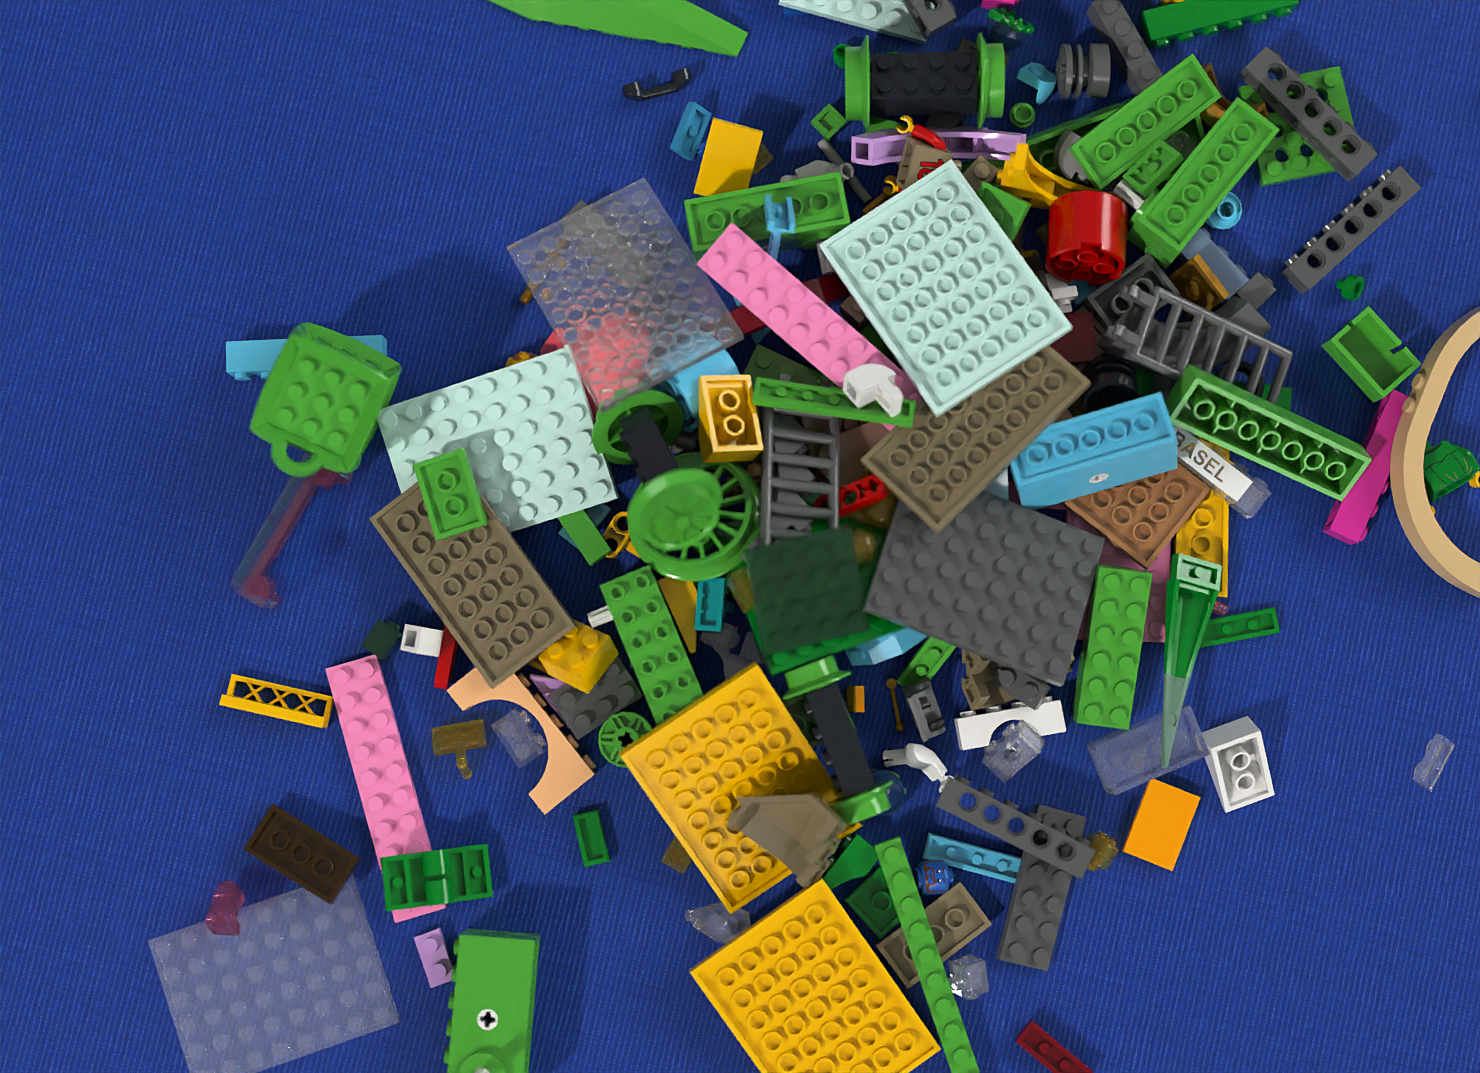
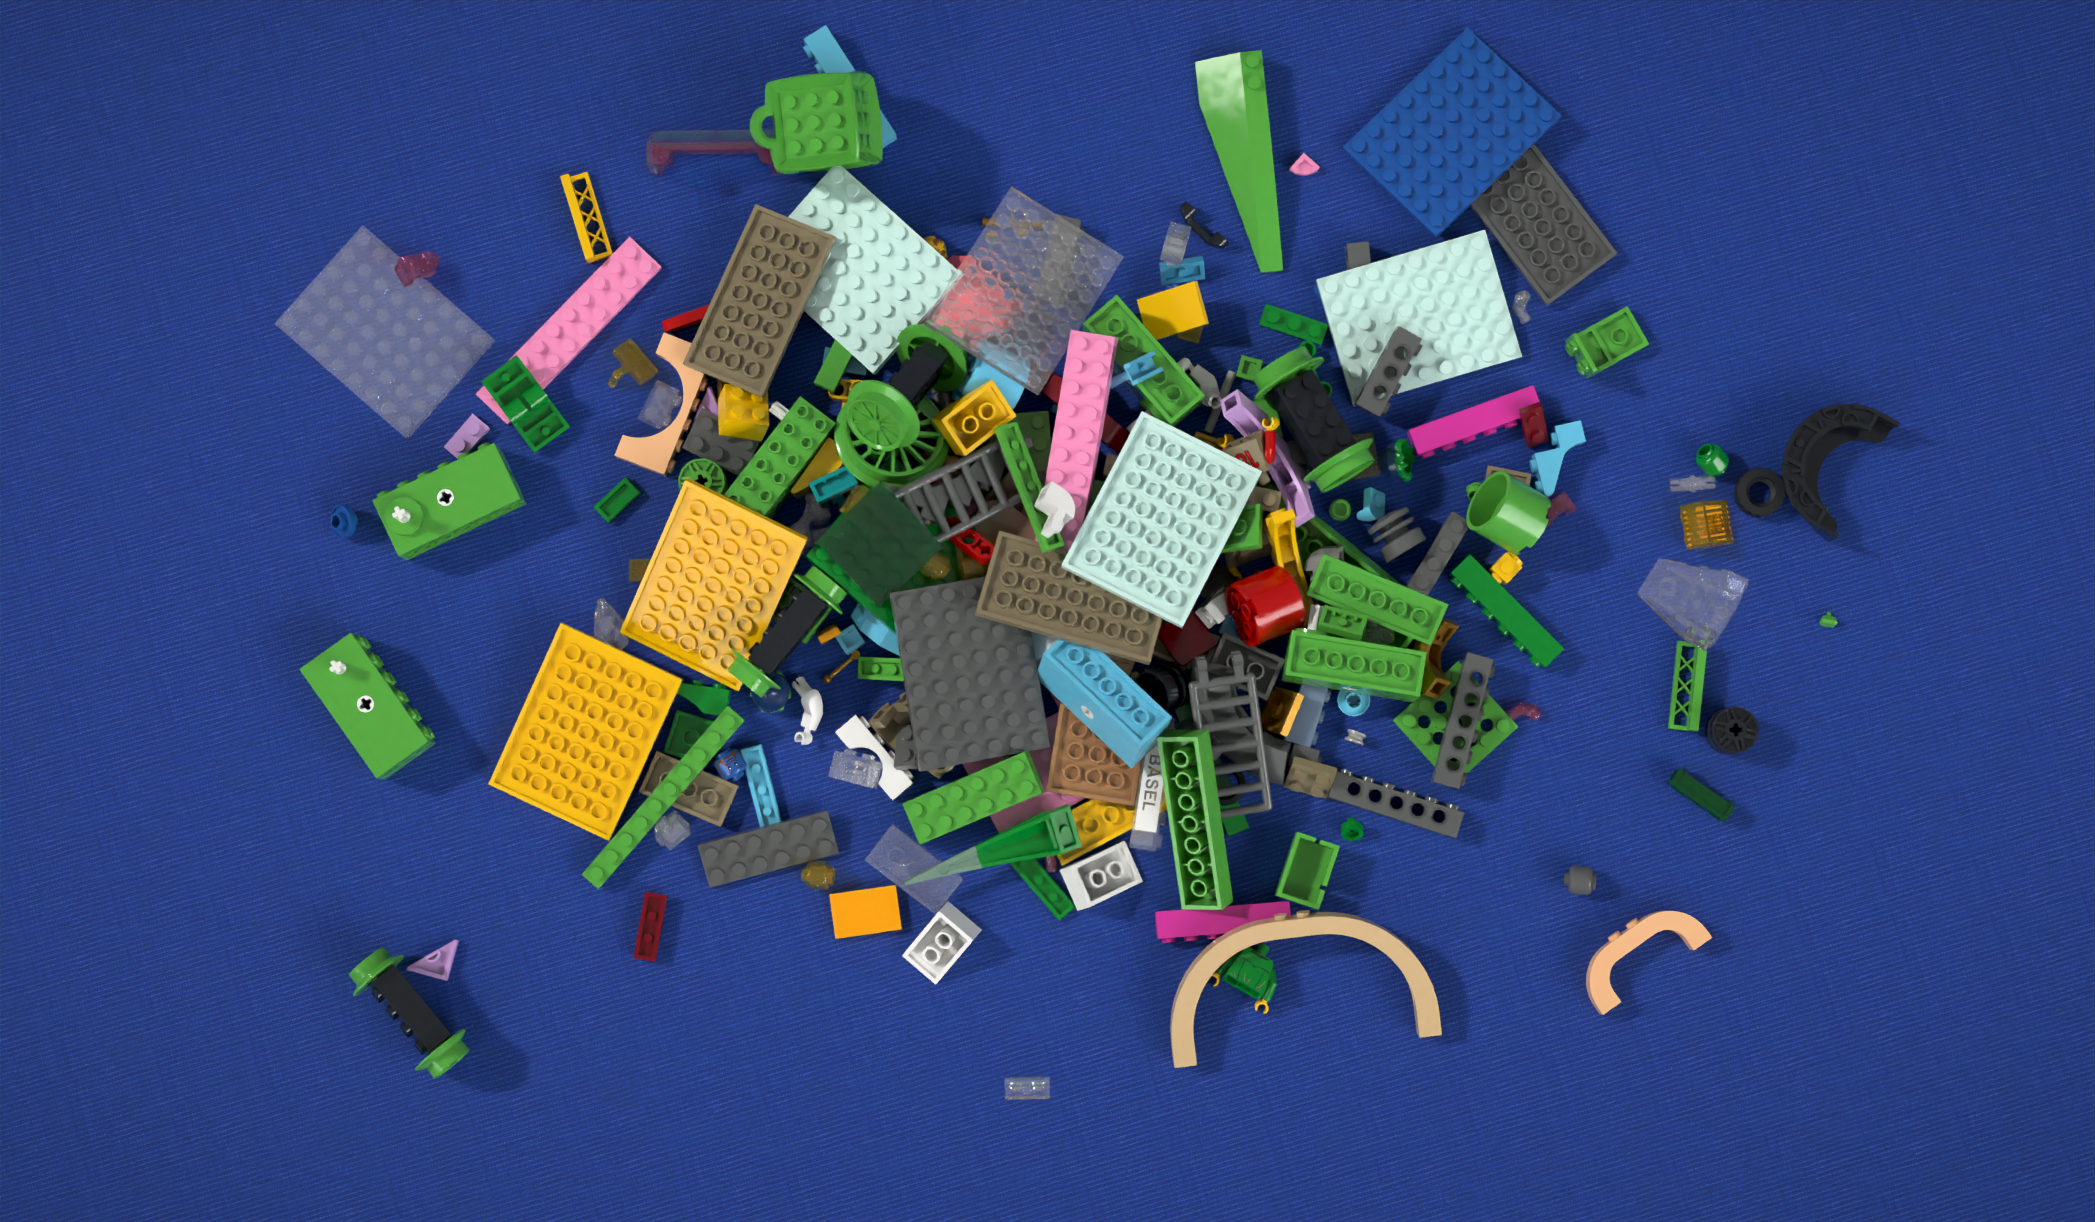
camera: 60 degrees right, 0 degrees up
(302, 854) = (487, 298): dark brown plate -> none
(383, 638) = (675, 265): clear green brick -> none
(421, 640) = (689, 293): white brick -> none
(450, 494) = (805, 251): bright green plate -> none
(661, 119) = (1175, 244): none -> clear brick
(793, 829) = (705, 636): dark tan panel -> none
(808, 54) = (1293, 324): none -> green plate
(874, 679) = (850, 639): none -> medium azure plate
(923, 709) = (849, 687): dark grey hinge -> none
(1074, 863) = (790, 743): dark grey brick -> none
(1259, 564) = (1101, 876): none -> white slope
(1260, 230) = (1355, 737): none -> light grey bush
(1280, 295) = (1310, 777): none -> dark tan plate
(1324, 49) = (1524, 709): none -> clear pink arm

